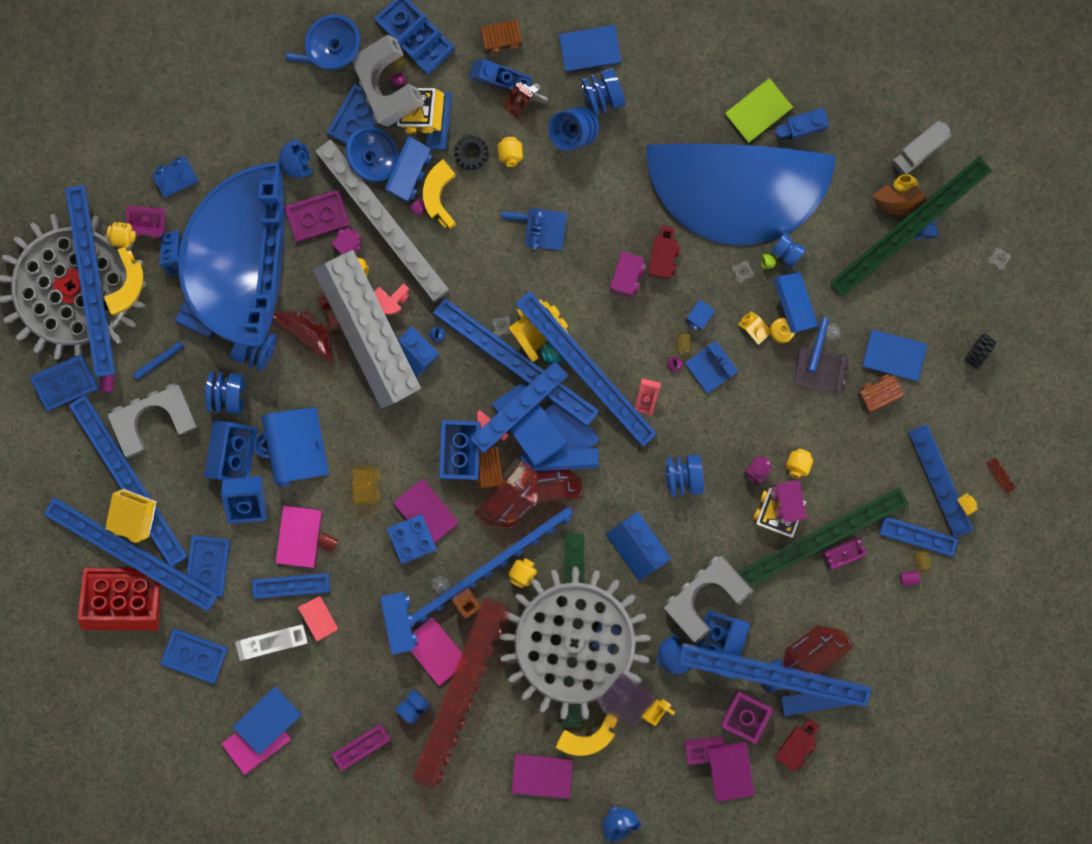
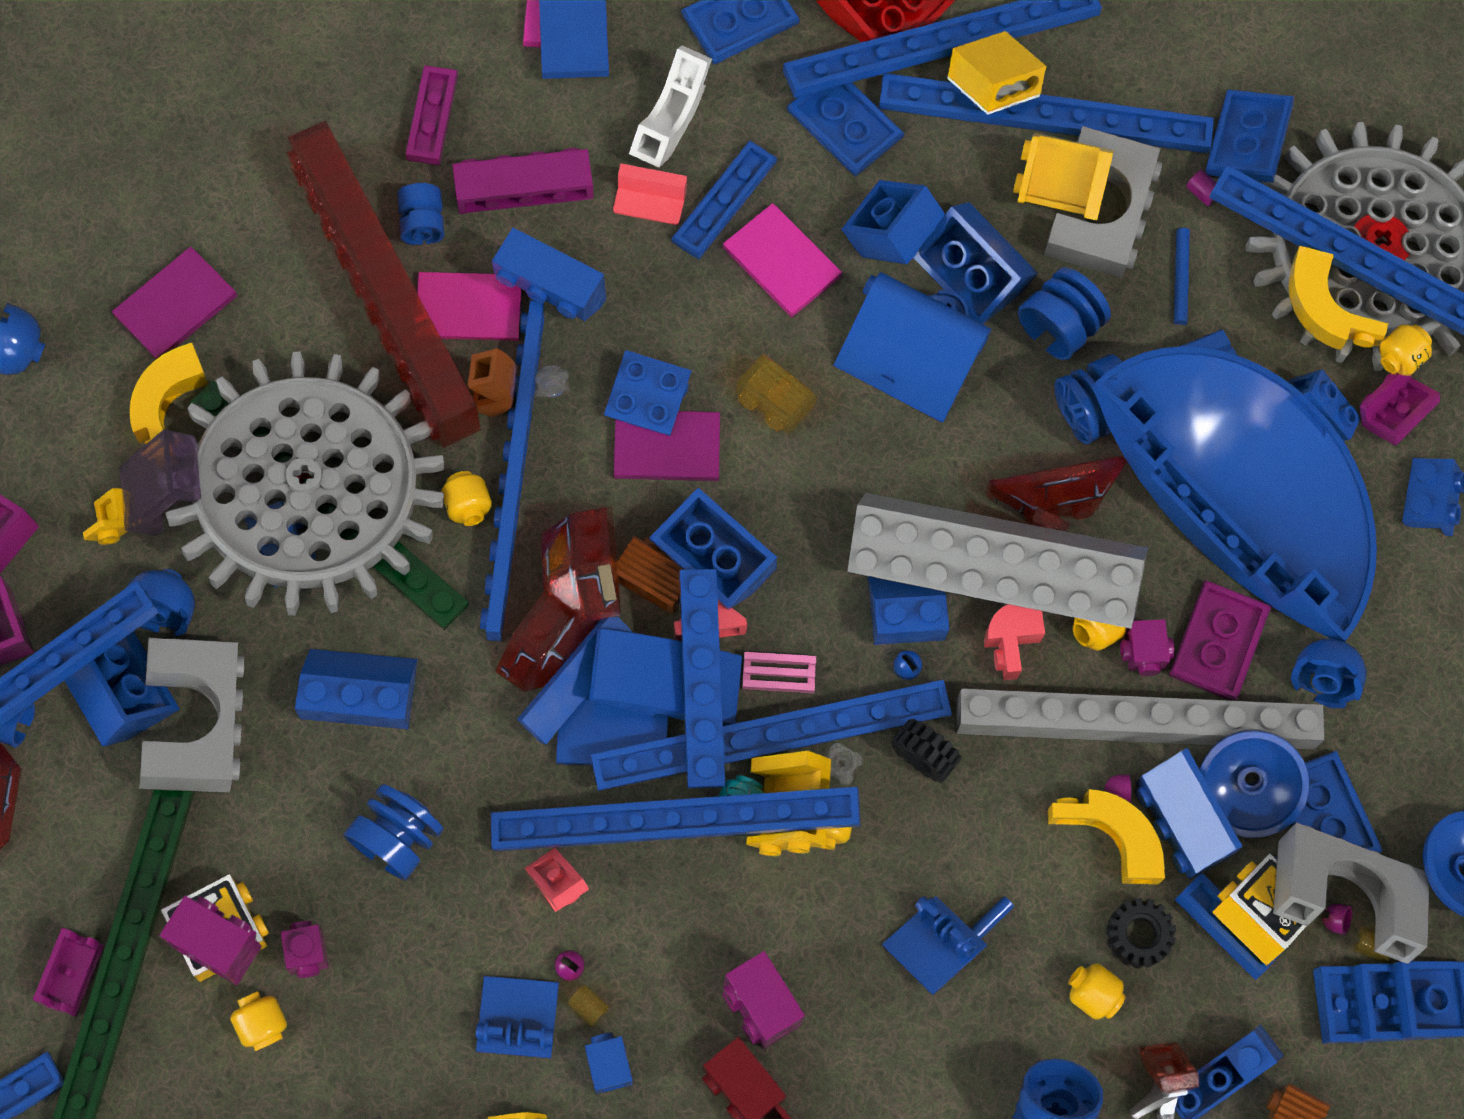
camera: 125 degrees right, 15 degrees down
(155, 445) = (1063, 175): none -> yellow panel
(327, 542) = (741, 288): clear red hinge -> none
(359, 678) = (523, 180): none -> magenta brick
(470, 294) = (926, 750): none -> black tyre
(475, 370) = (809, 673): none -> bright pink tile

